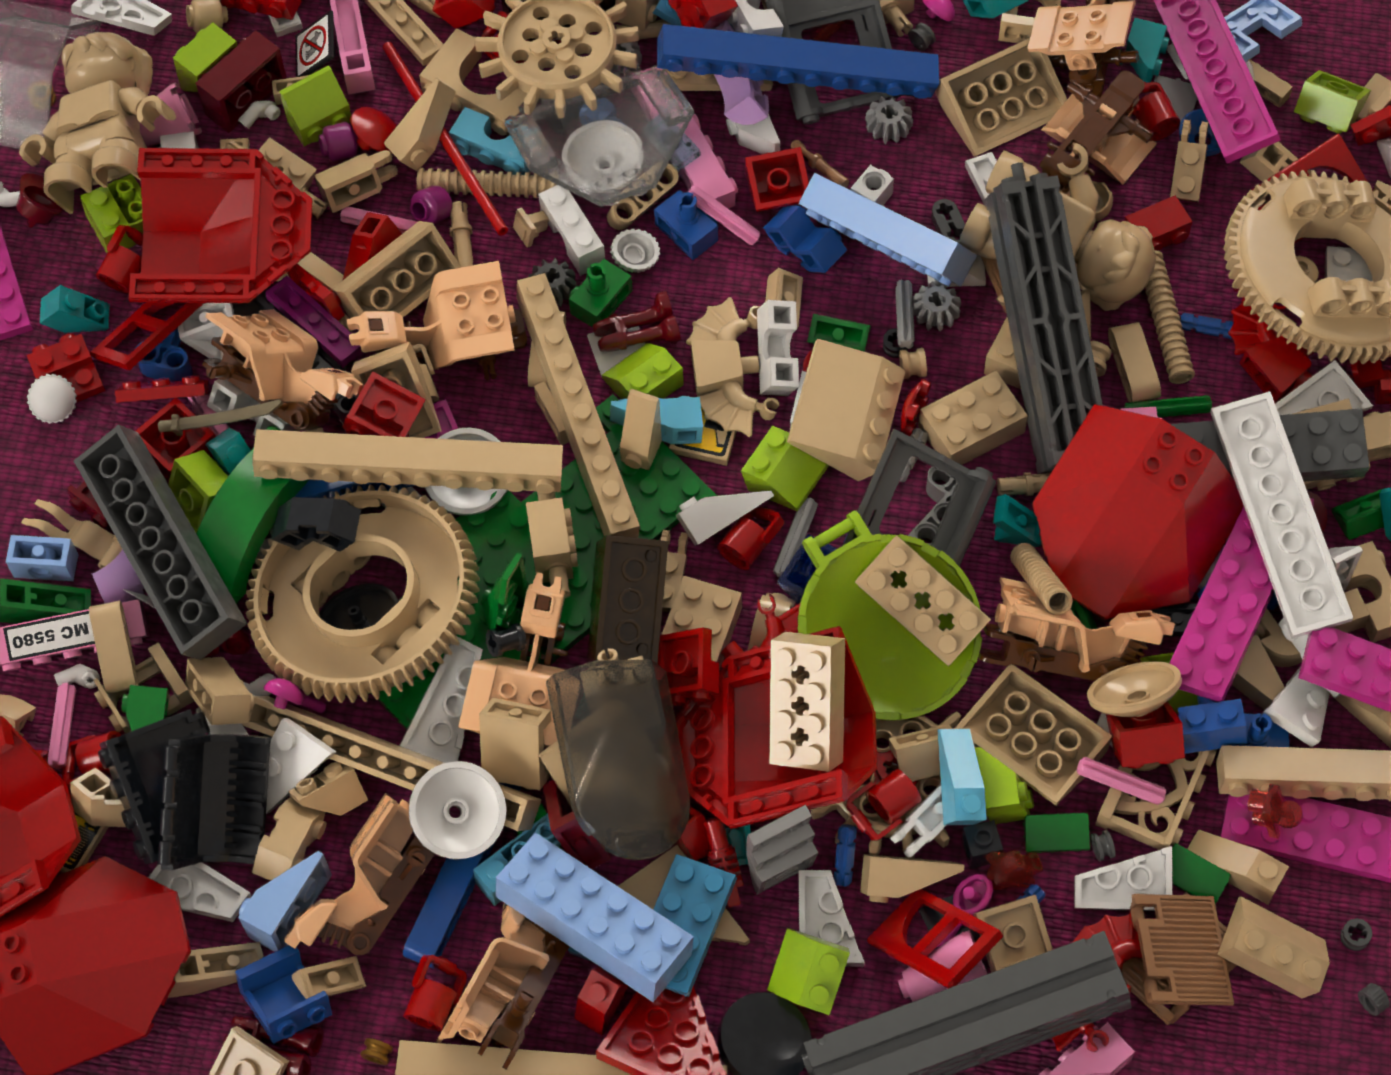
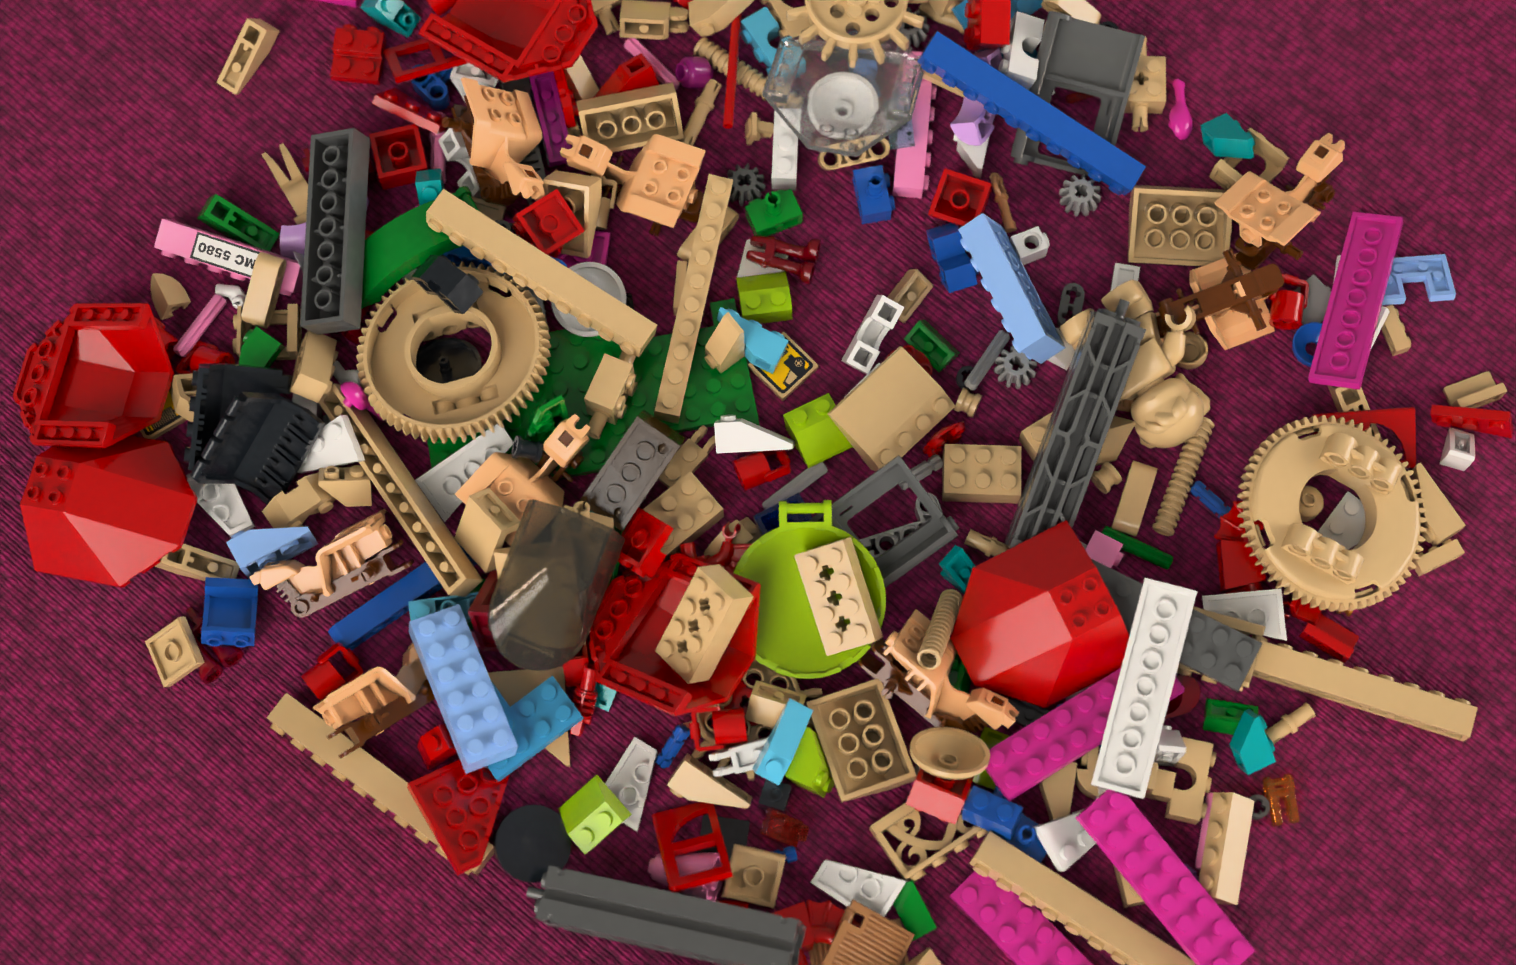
camera: 30 degrees right, 10 degrees up
(42, 558) = (256, 192): light blue brick -> none
(51, 398) = (335, 71): white hat -> none
(178, 424) = (404, 146): dark tan sword -> none
(195, 484) = (391, 198): lime slope -> none
(331, 977) = (267, 620): tan slope -> none
(376, 1051) = (269, 689): pearl gold bush -> none
(480, 807) = (401, 572): white dish -> none
(635, 250) = (820, 193): white hat -> none
(720, 368) = (824, 323): tan torso -> none
(725, 216) = (902, 204): bright pink axle -> none
(781, 849) = (621, 718): light grey slope -> none
(922, 36) = (1150, 140): dark grey bush -> none
(972, 897) = (741, 831): dark pink piece -> none
(1056, 832) = (835, 820): green slope -> none
(1103, 845) = (861, 849): dark grey bush -> none
(1121, 780) = (900, 812): bright pink axle -> none
(1150, 42) = (1318, 247): teal slope -> none
(1165, 221) = (1229, 400): red brick -> none
(1189, 164) = (1284, 364): tan hinge -> none
(1249, 867) = (948, 921): tan slope -> none
(1272, 811) = (994, 902): clear red hips -> none
(1331, 101) = (1434, 375): lime slope -> none

